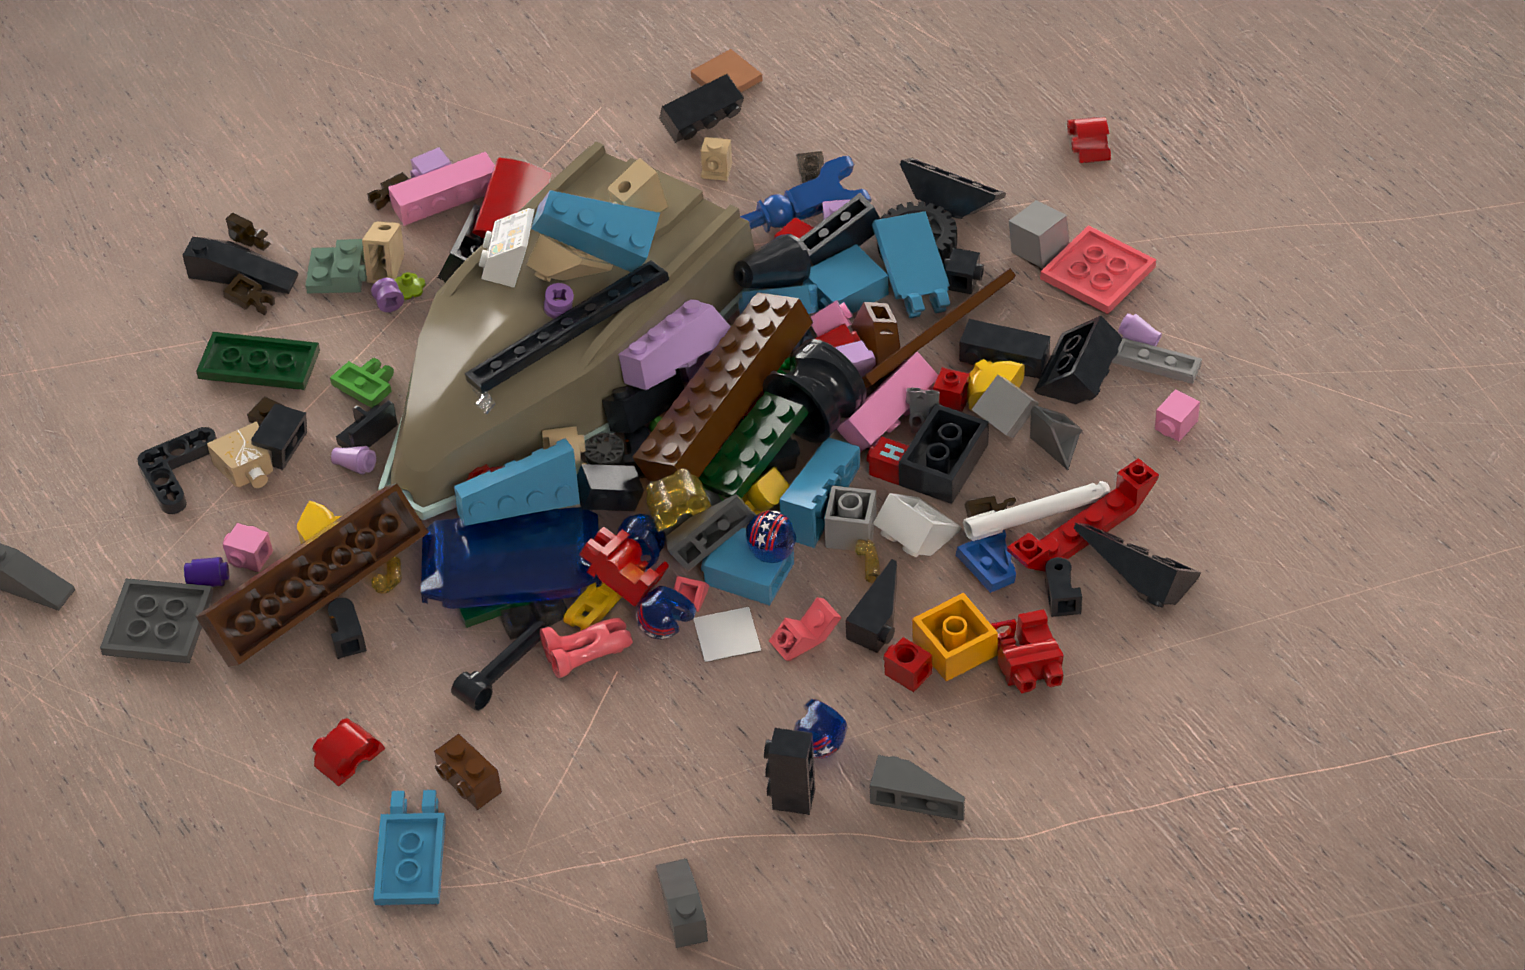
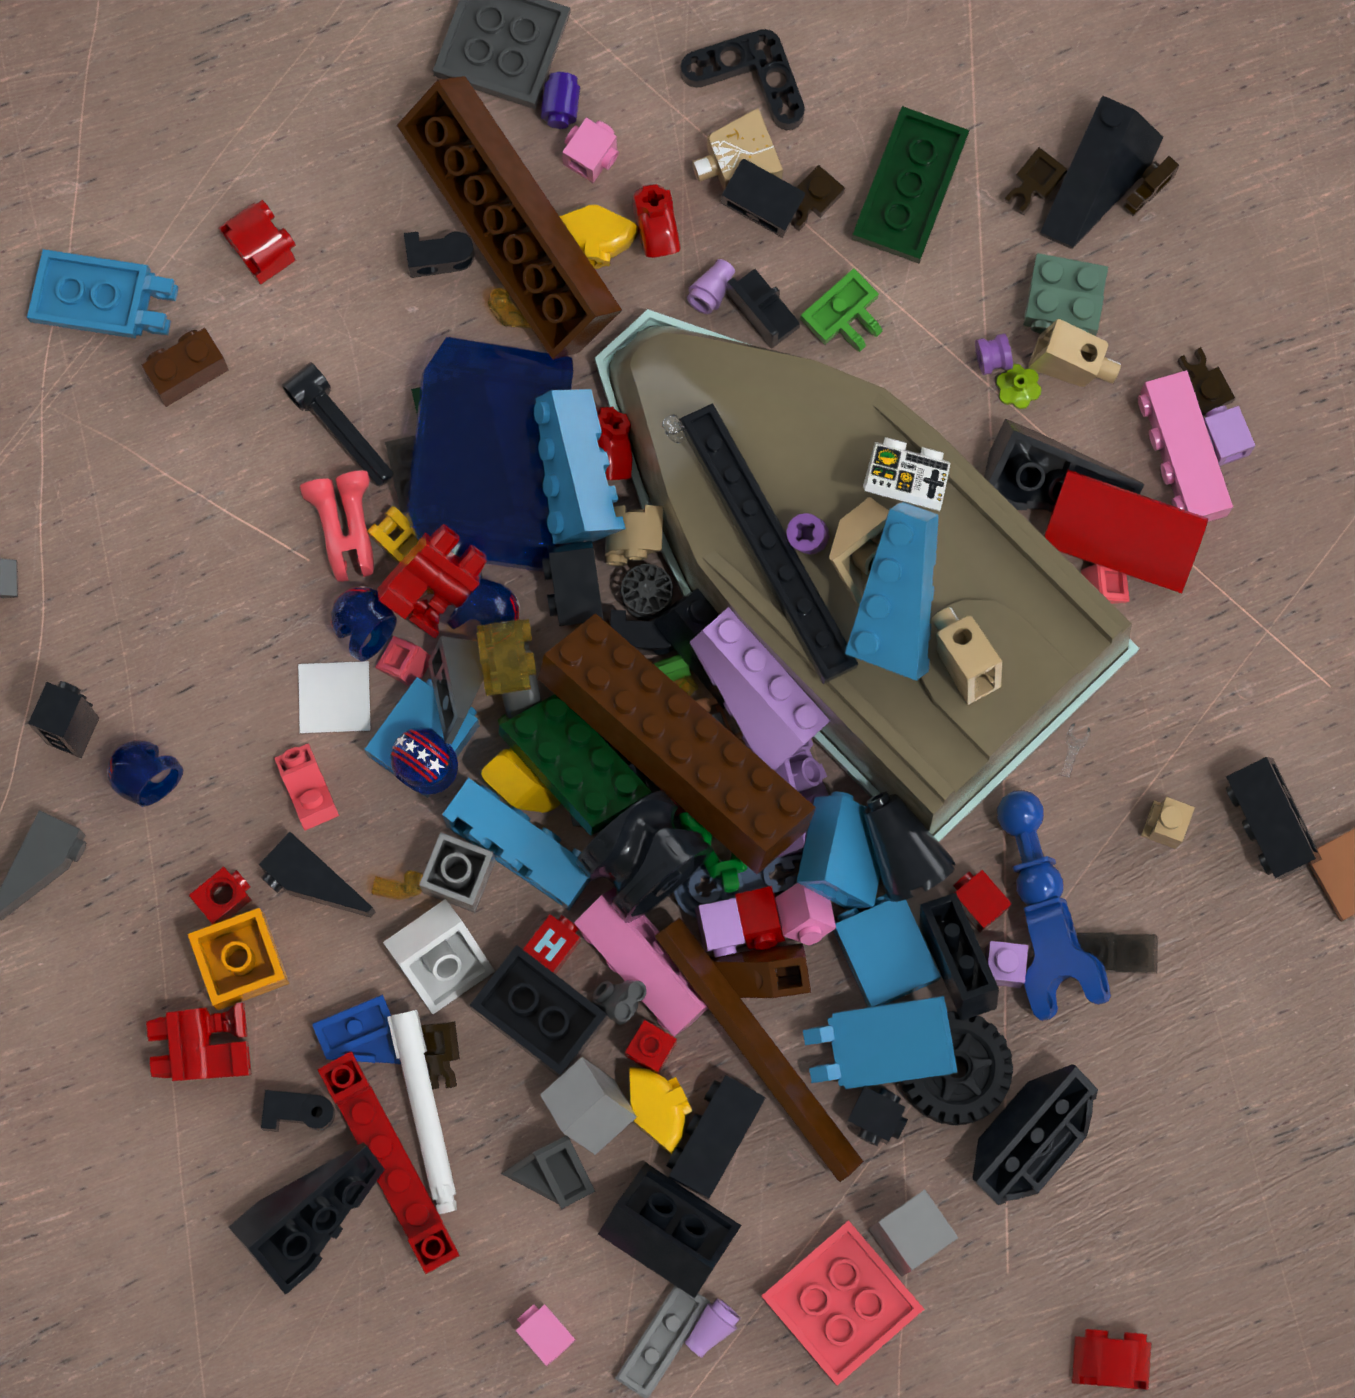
camera: 95 degrees right, 30 degrees up
(298, 490) = (656, 221): none -> red piece

